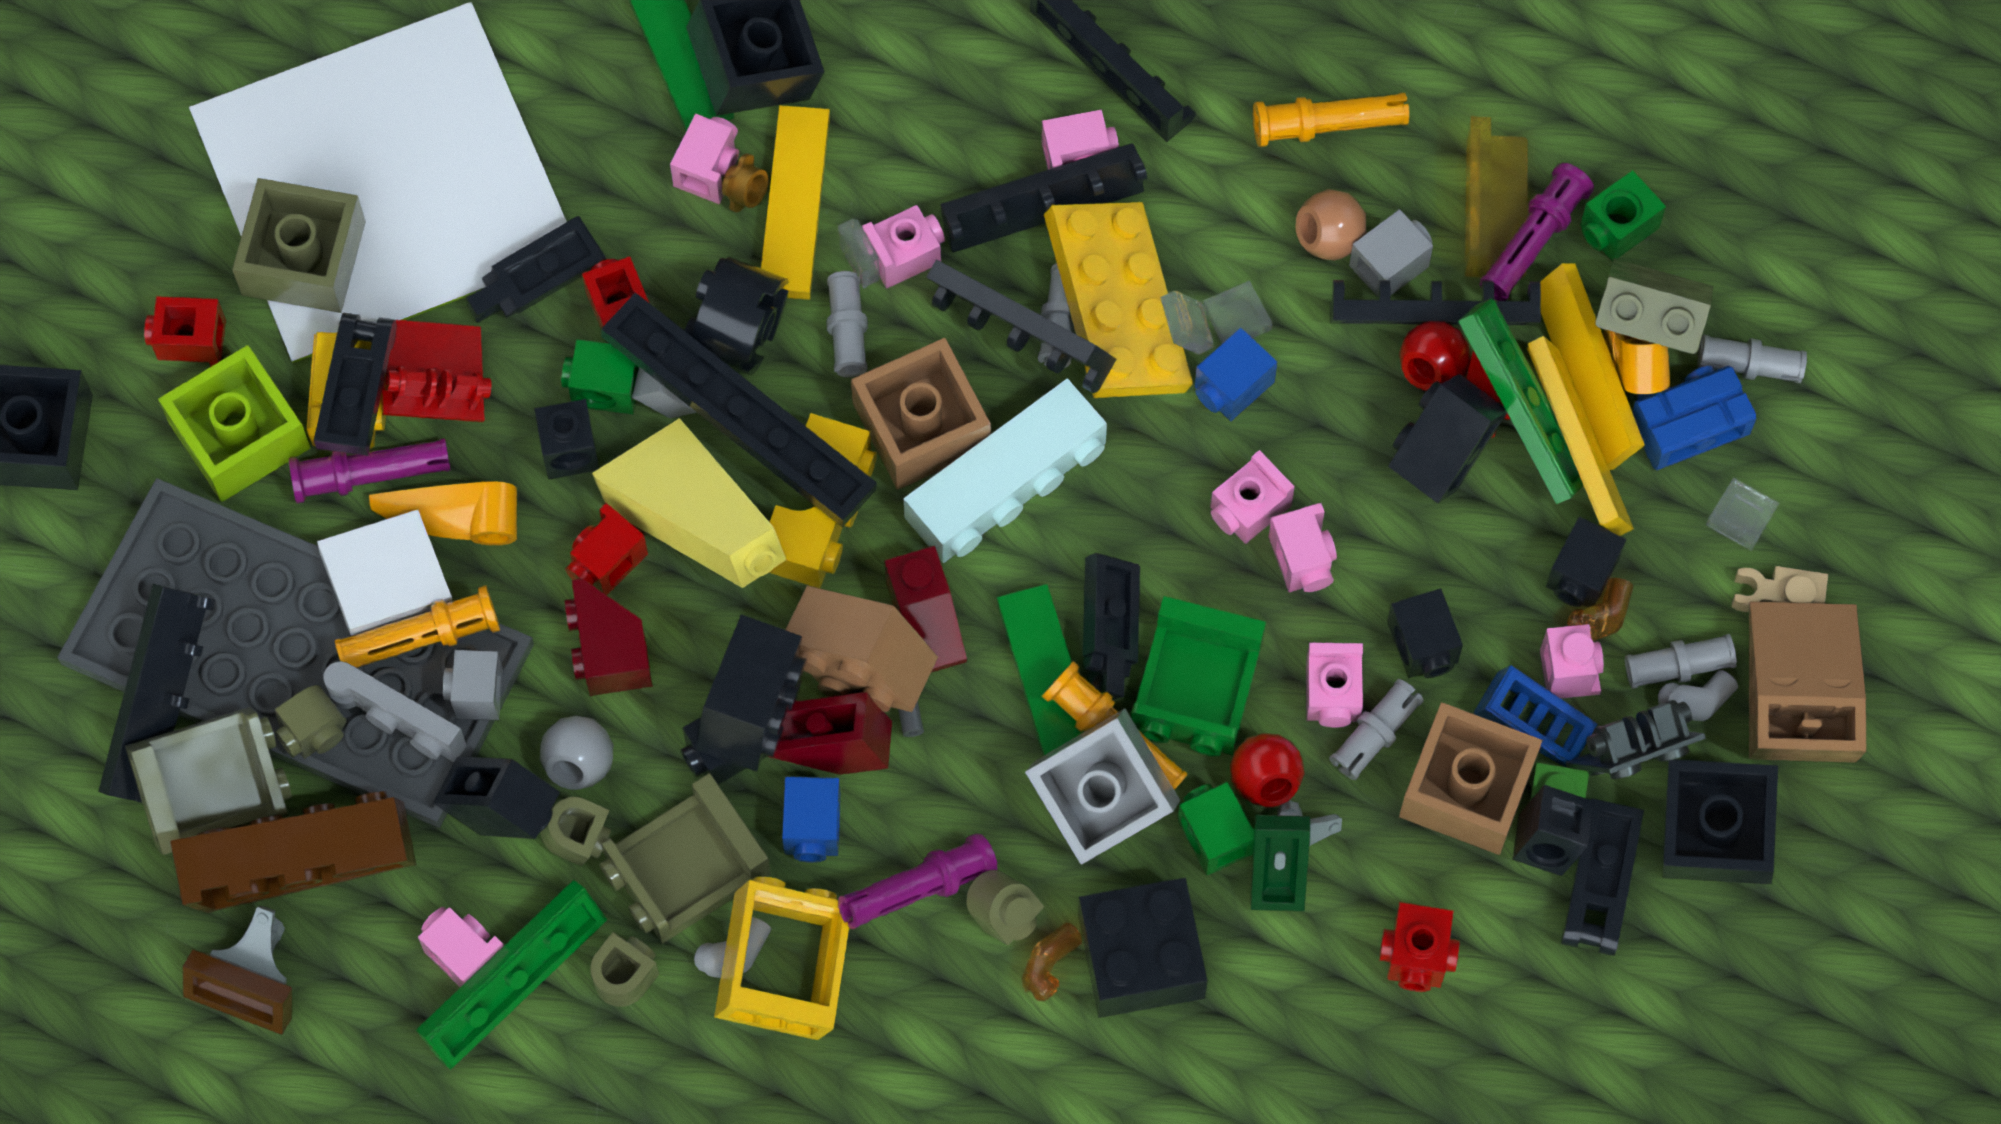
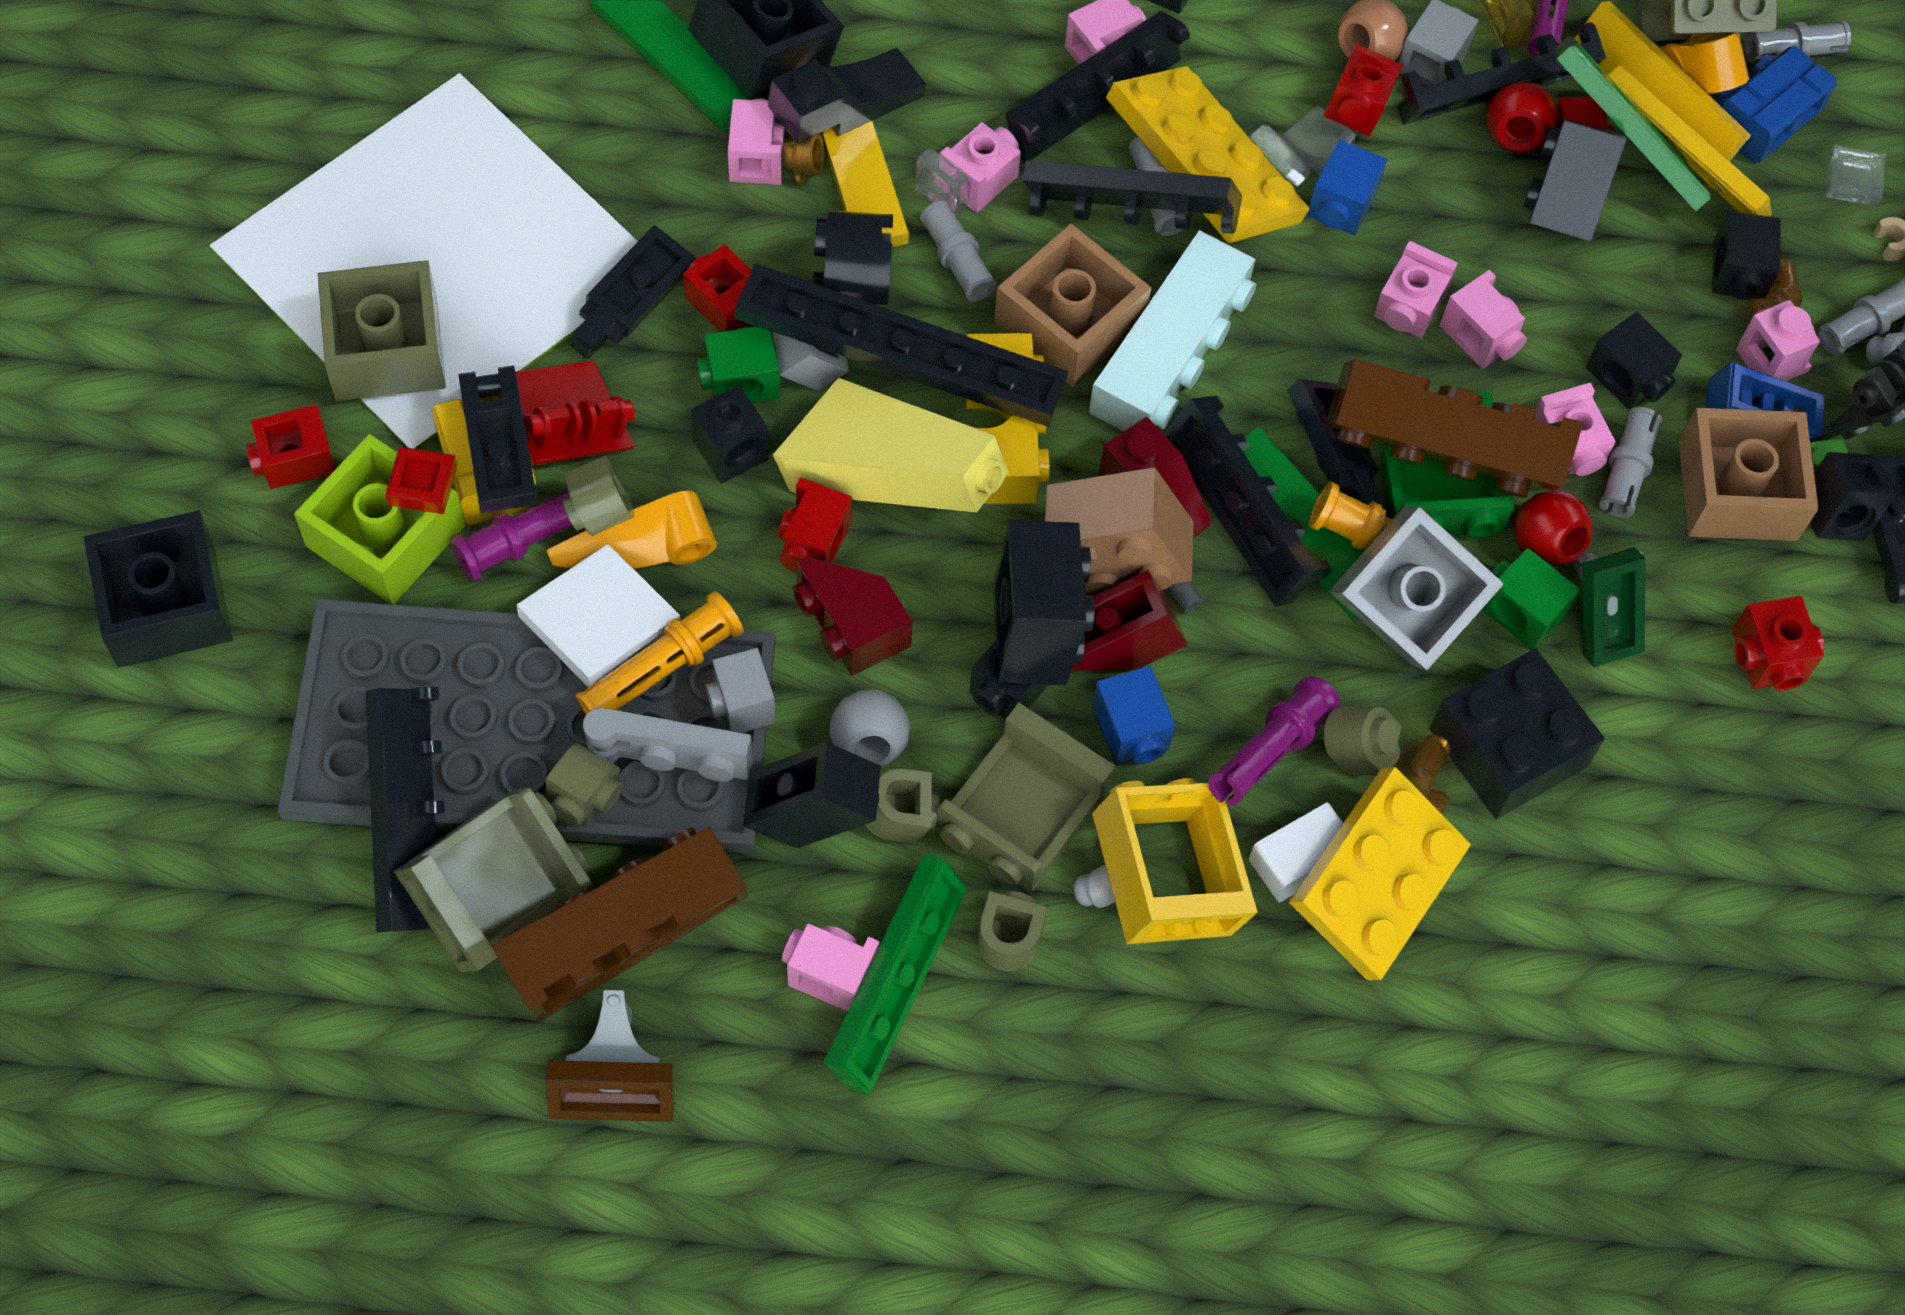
camera: 25 degrees left, 5 degrees down
(273, 404) = (421, 480): none -> red tile
(421, 466) = (596, 497): none -> olive plate
(801, 139) = (843, 95): none -> black slope
(907, 988) = (1292, 851): none -> white piece
(961, 1031) = (1380, 873): none -> yellow plate
(999, 650) = (1244, 501): none -> black hinge
(1199, 647) = (1451, 429): none -> reddish brown wedge
(1292, 282) = (1363, 90): none -> red brick

